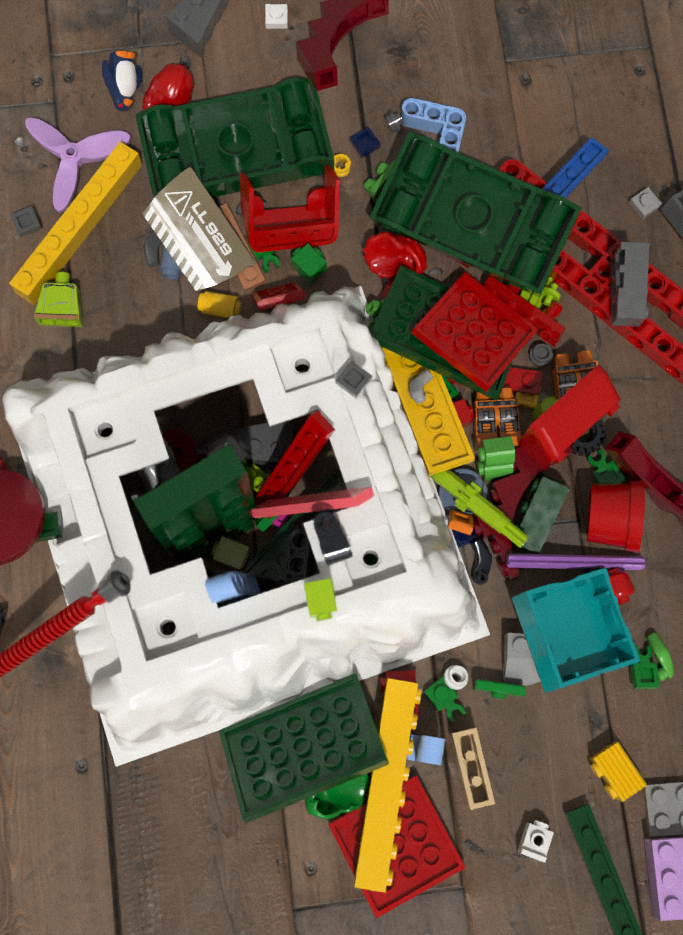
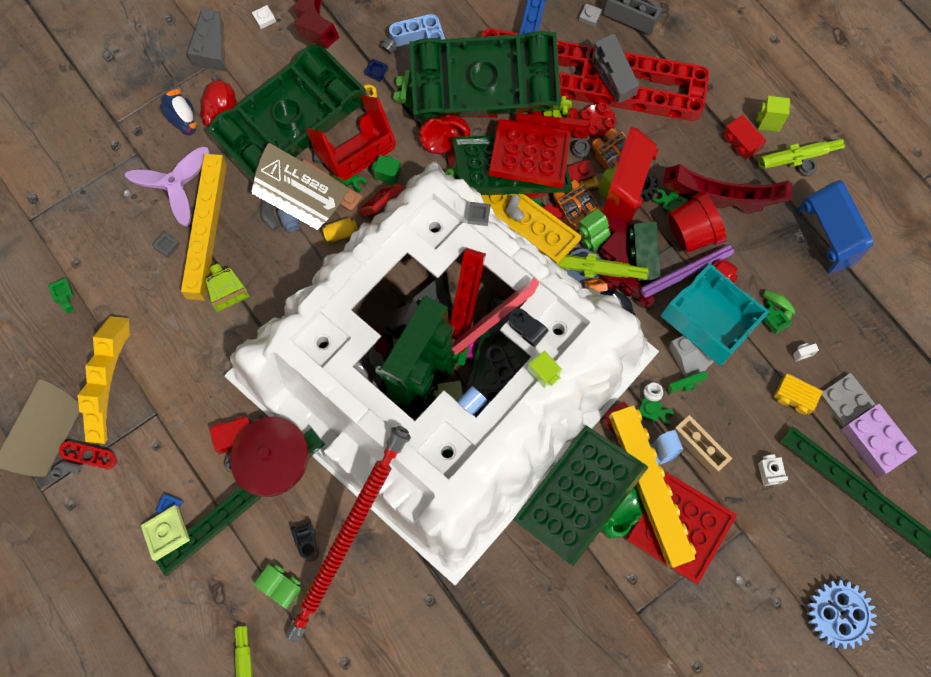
camera: 25 degrees left, 5 degrees down
(582, 331) = (600, 119): none -> red dish
(656, 727) = (805, 351): none -> white plate

